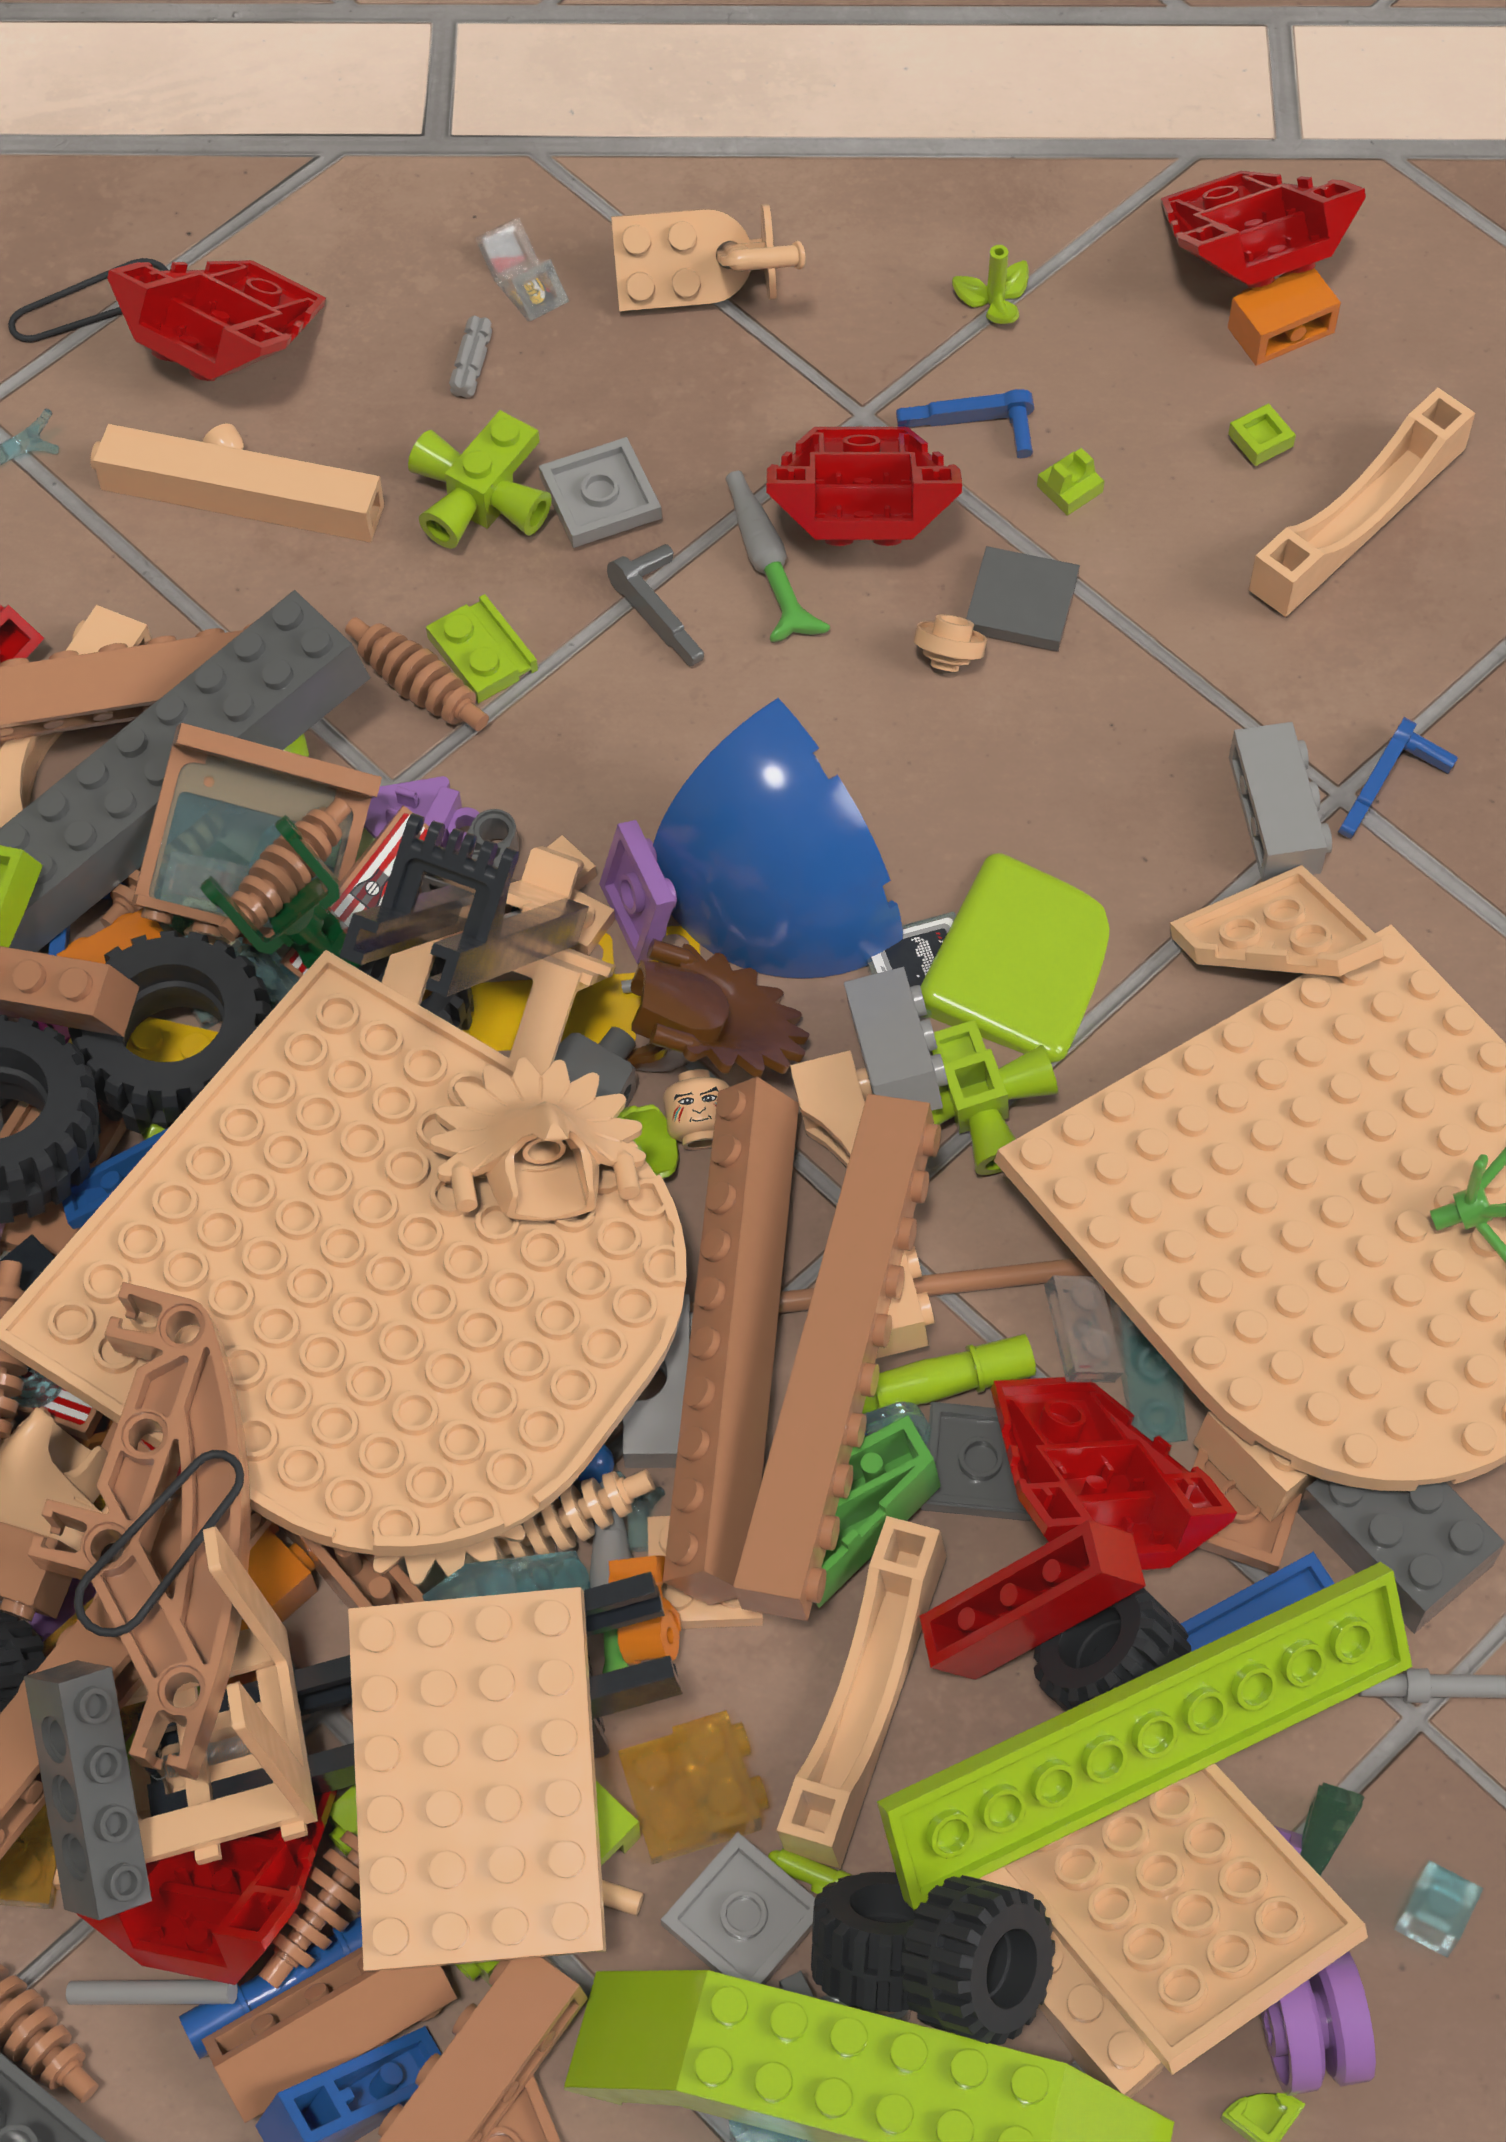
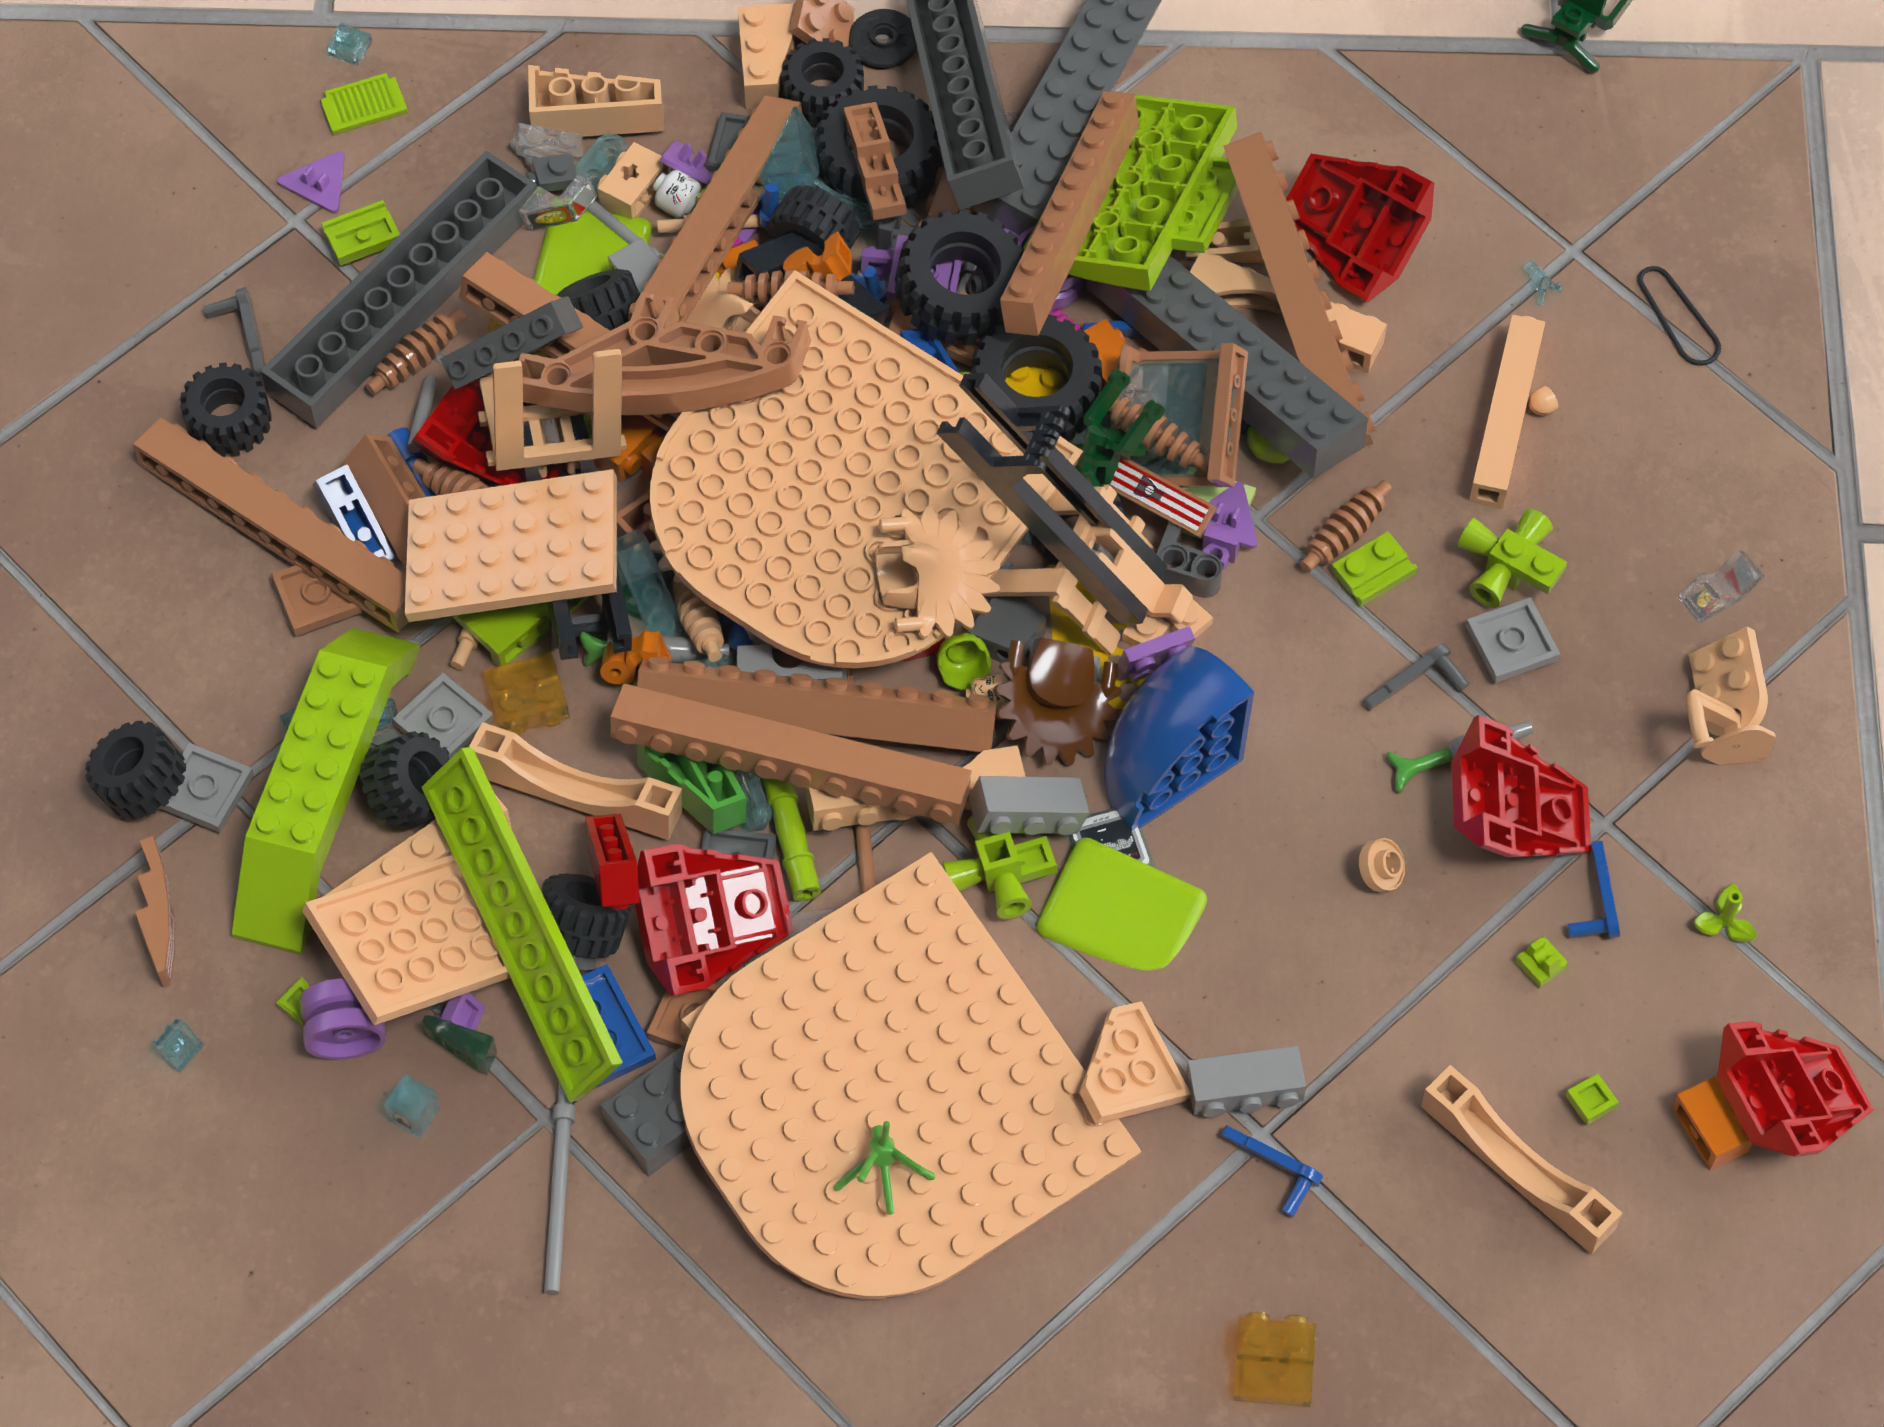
camera: 90 degrees right, 0 degrees up
(137, 1525) = (654, 343): black piece -> none
(213, 316) = (1649, 384): red wedge -> none
(470, 356) = (1638, 556): light grey axle -> none
(978, 1959) = (362, 823): black tyre -> none
(1022, 598) = (1430, 922): dark grey tile -> none

